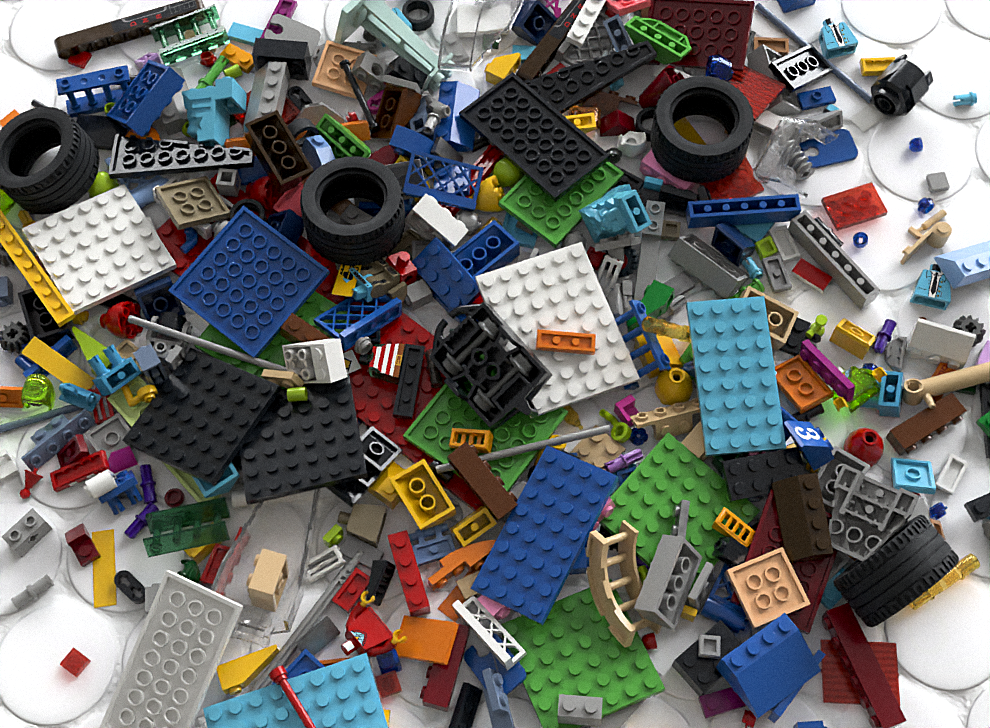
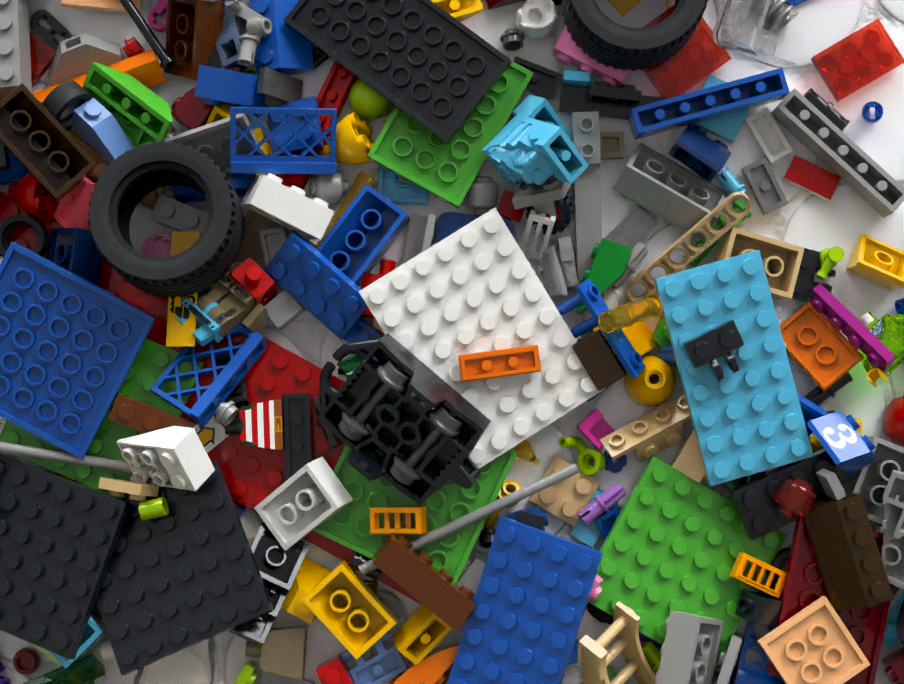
camera: 10 degrees left, 20 degrees up
(405, 414) = (303, 503): none -> white slope
(638, 355) = (599, 360): none -> dark brown slope
(680, 514) = (690, 595): flat silver plate -> none
(703, 194) = (651, 90): black plate -> none
(722, 351) = (713, 344): none -> black hinge
(727, 284) = (691, 251): none -> tan beam
(765, 247) = (744, 147): lime tile -> none
(768, 470) = (795, 498): none -> clear red head
(796, 465) = (831, 484): none -> light grey tile

